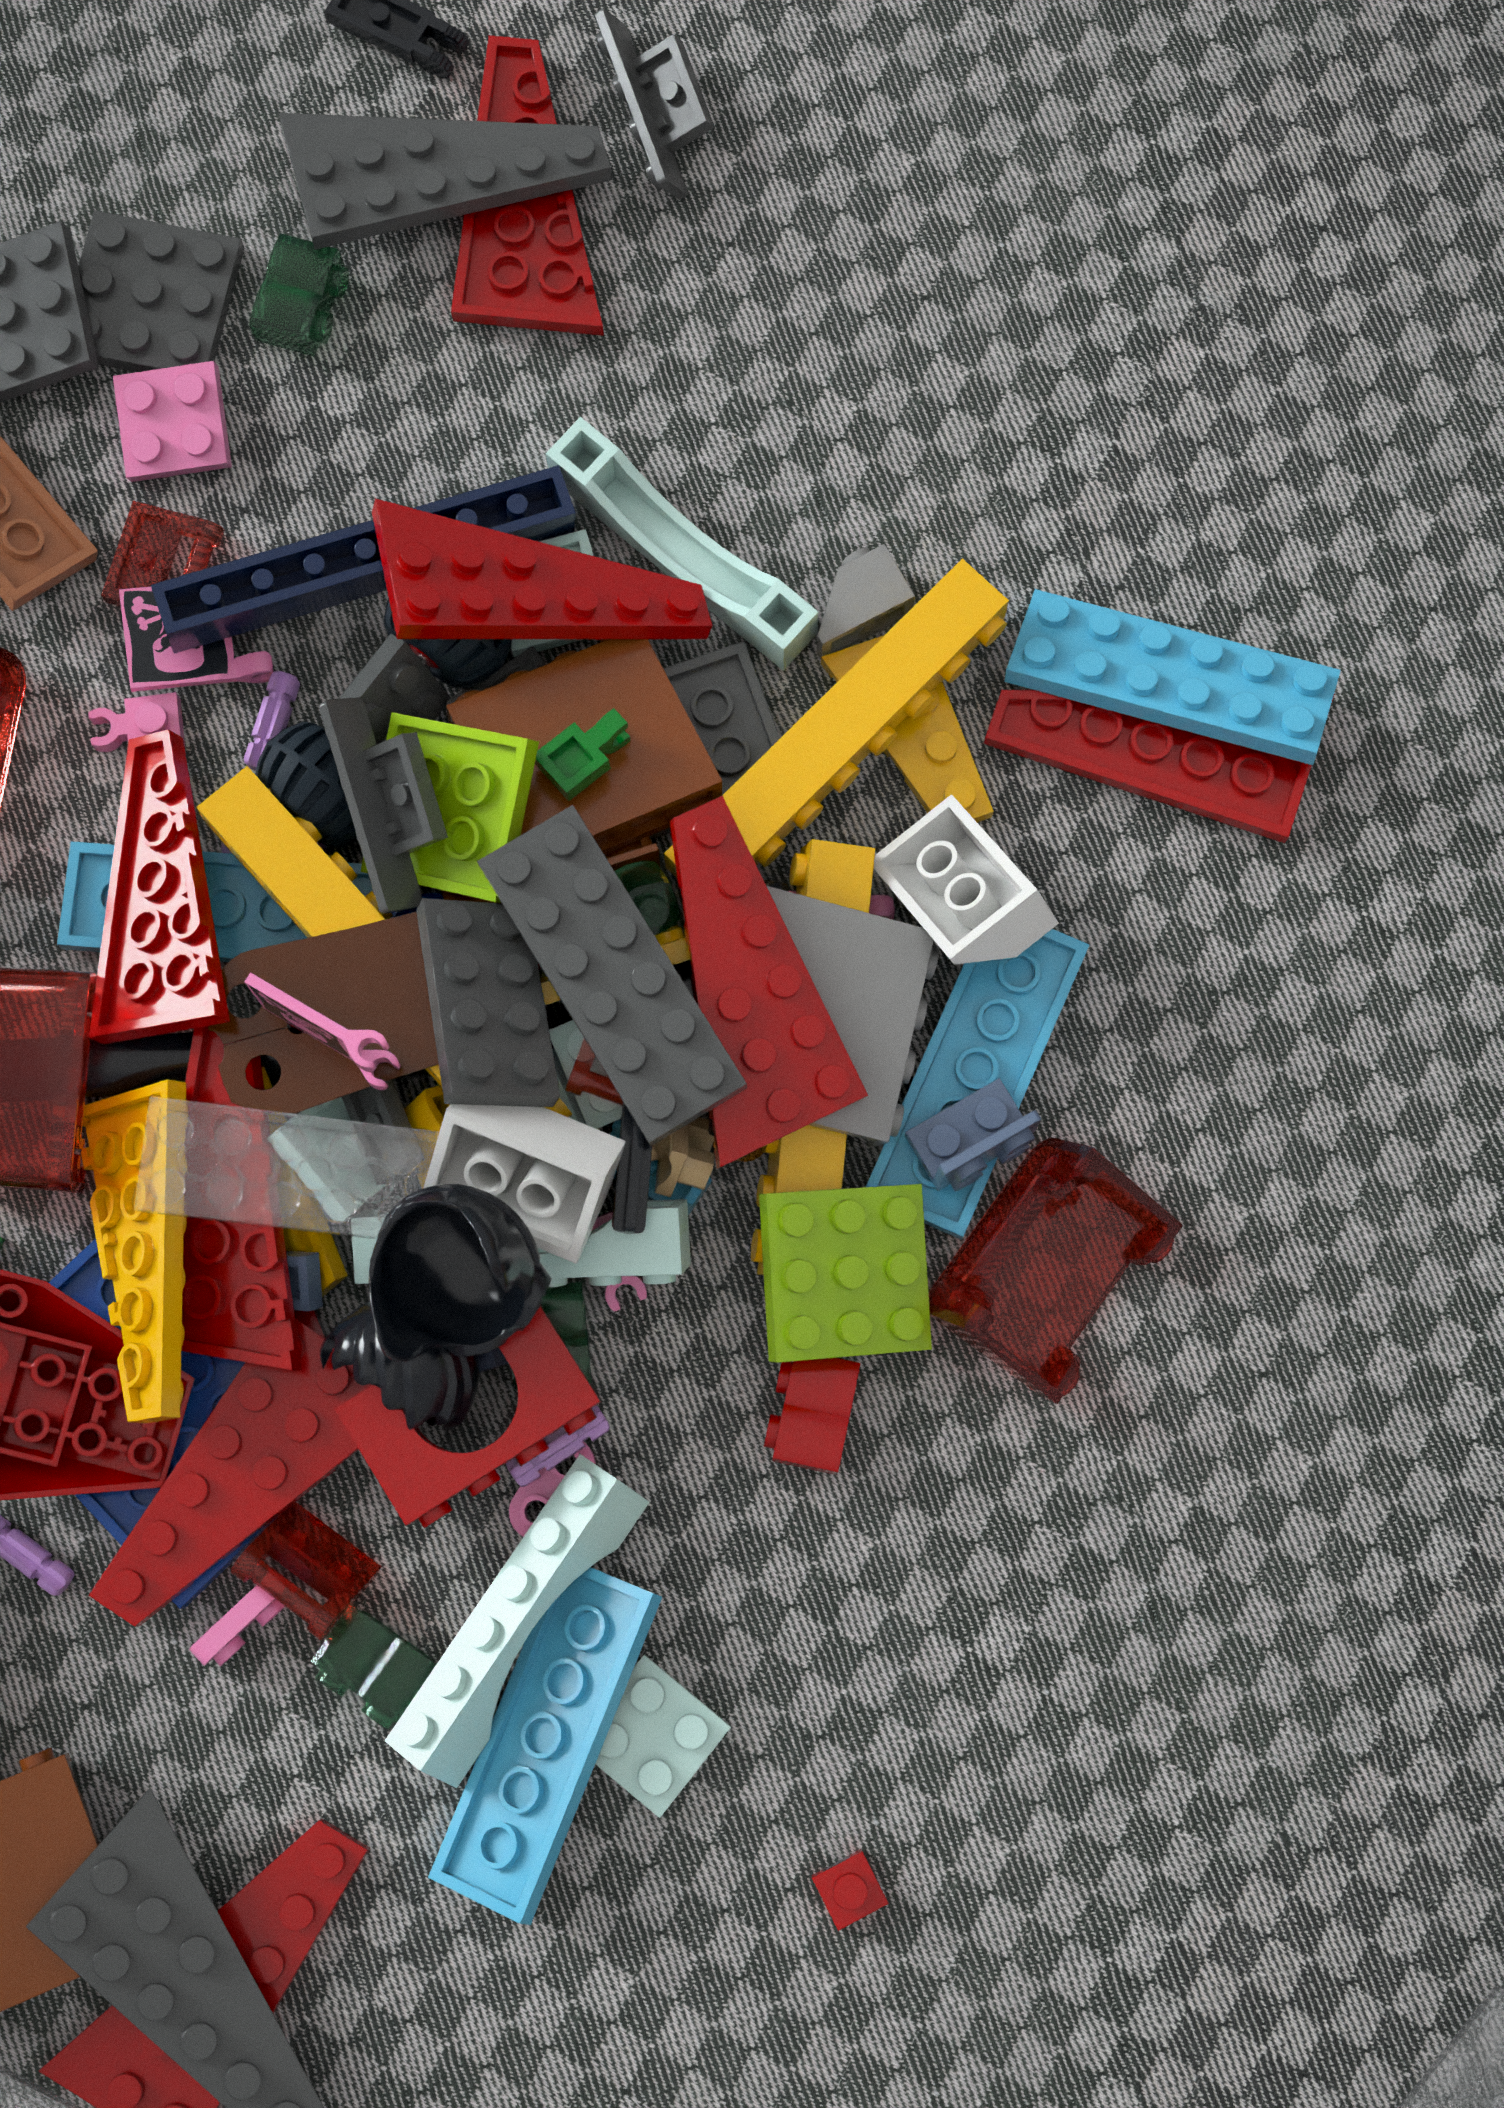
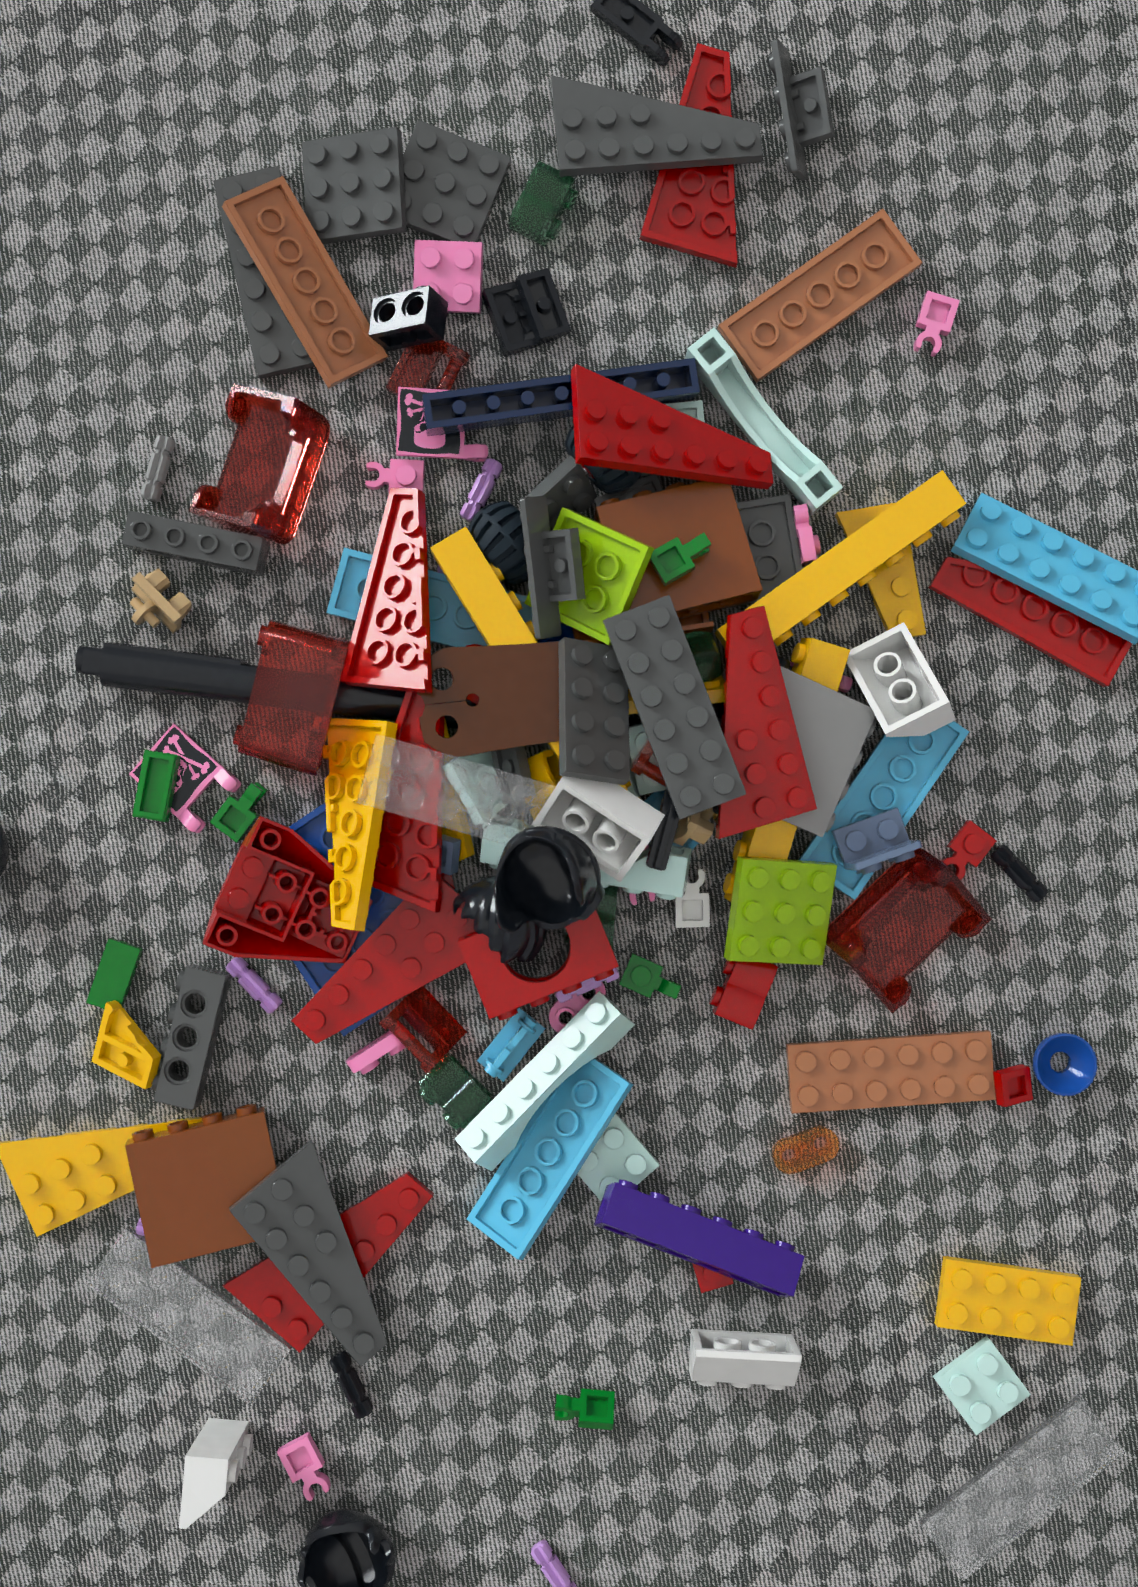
camera: 10 degrees right, 10 degrees up
(118, 487) = (408, 318): none -> black brick
(299, 453) = (526, 312): none -> black slope
(345, 1041) = (511, 728): bright pink flag -> none
(456, 1574) = (510, 1045): none -> medium azure hinge
(653, 1424) = (644, 976): none -> green plate
(708, 1295) = (693, 907): none -> white plate
(734, 352) = (819, 295): none -> nougat plate
(784, 708) = (808, 543): none -> bright pink plate
(815, 1834) = (699, 1239): none -> dark purple brick
(863, 600) = (871, 479): light grey slope -> none
(914, 354) = (935, 318): none -> bright pink plate
(927, 2030) = (743, 1358): none -> white slope
(965, 1661) = (805, 1152): none -> clear orange plate
(1076, 1504) = (890, 1071): none -> nougat plate
(1128, 1124) = (969, 847): none -> red plate
(1215, 1150) = (1019, 873): none -> black axle
(1275, 1487) = (1013, 1085): none -> red plate
(1332, 2001) = (981, 1385): none -> light aqua plate
(1345, 1848) = (1007, 1300): none -> yellow plate
(1377, 1431) = (1080, 1068): none -> blue piece

